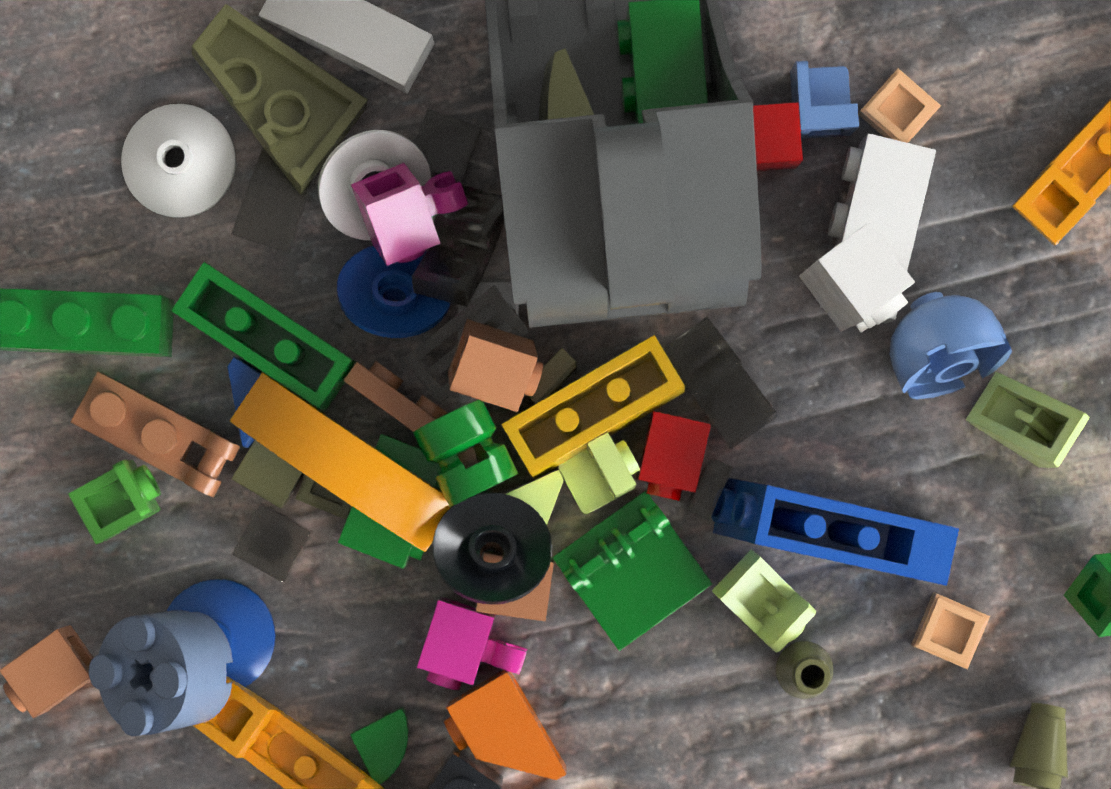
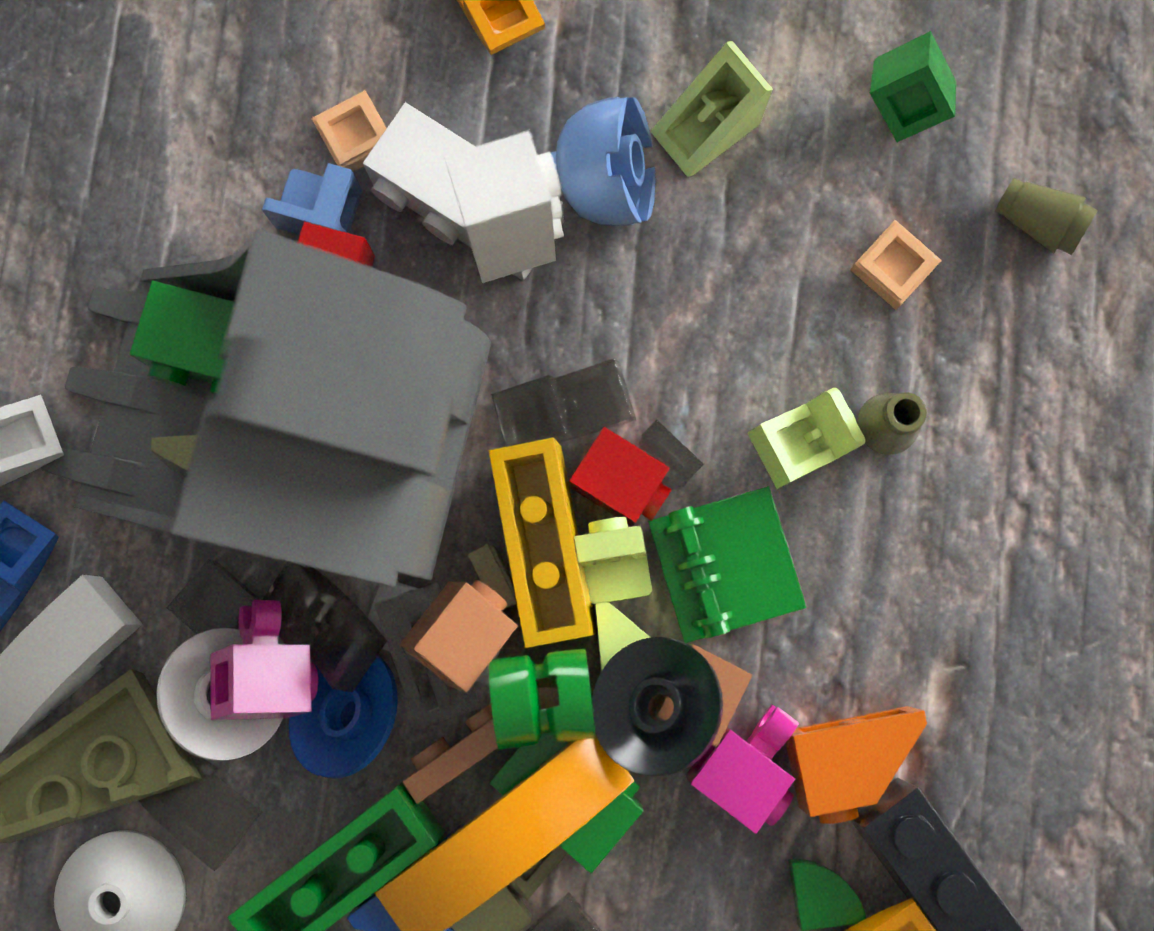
camera: 70 degrees left, 5 degrees down
(835, 531) = (758, 340): blue slope -> none

